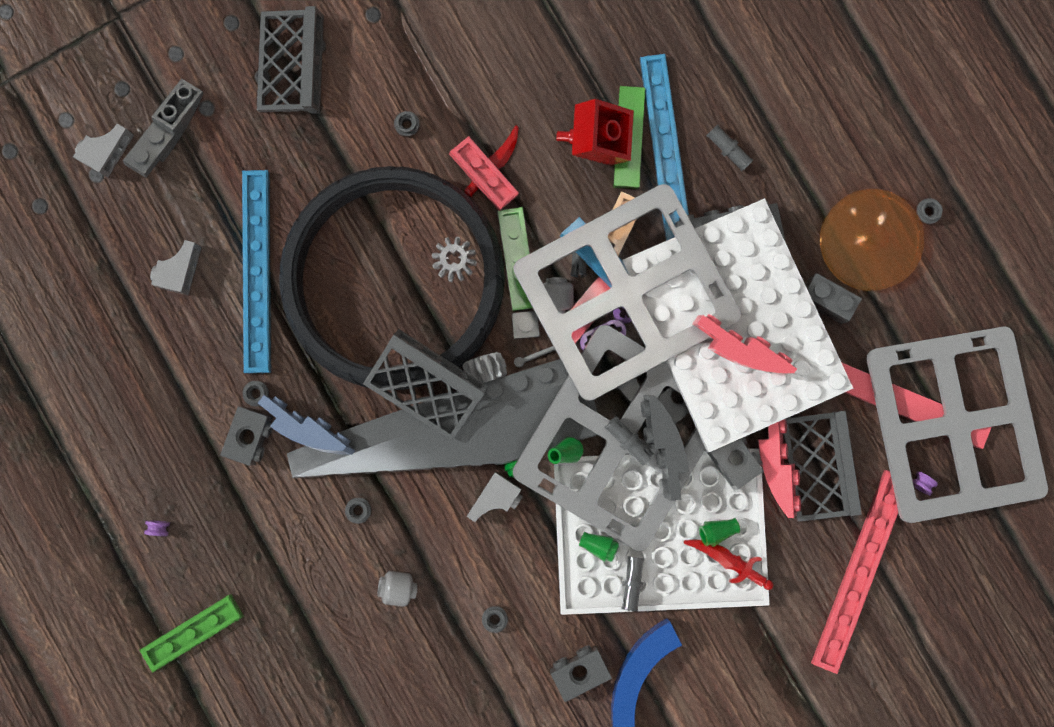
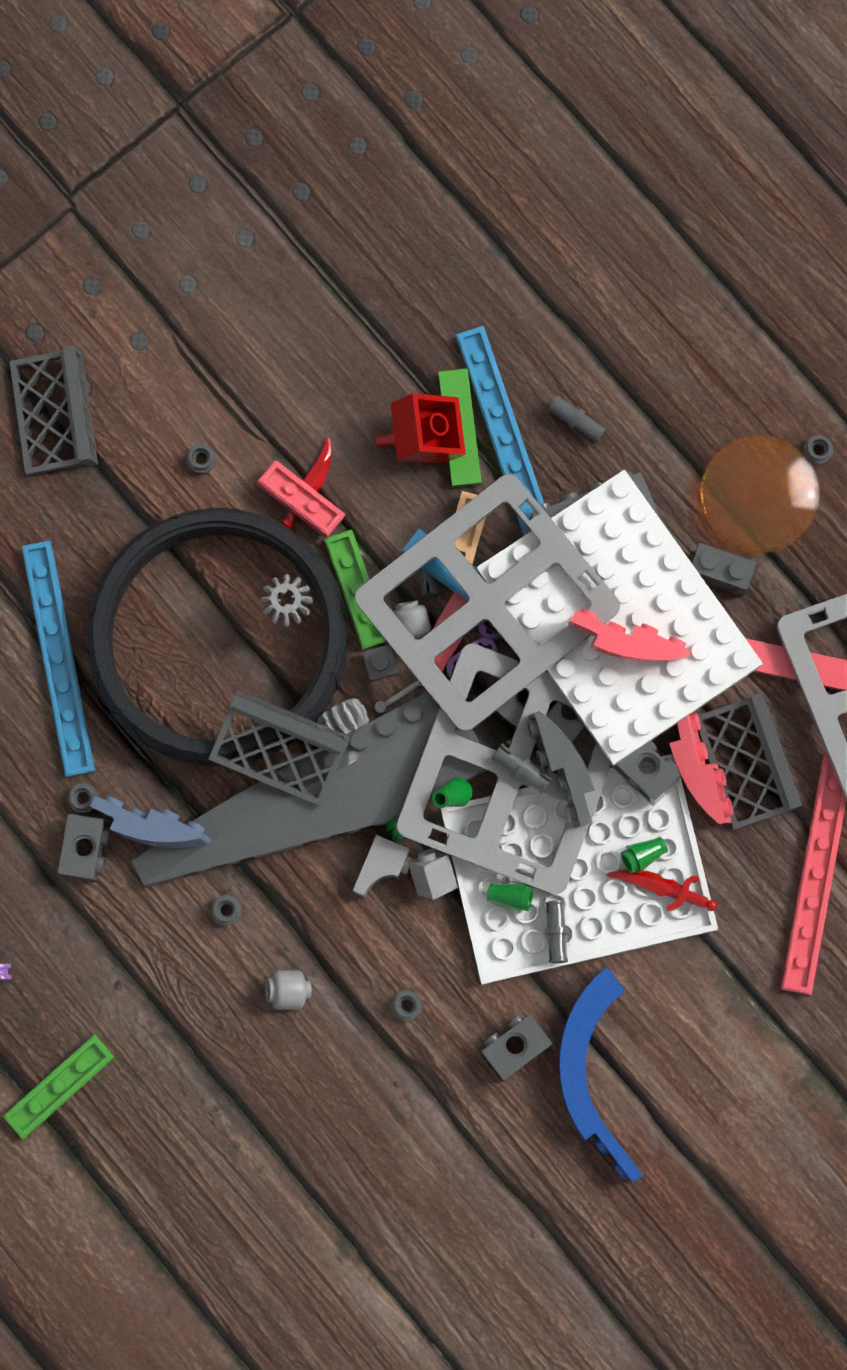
camera: 10 degrees left, 5 degrees down
(536, 515) = (432, 874): none -> light grey brick

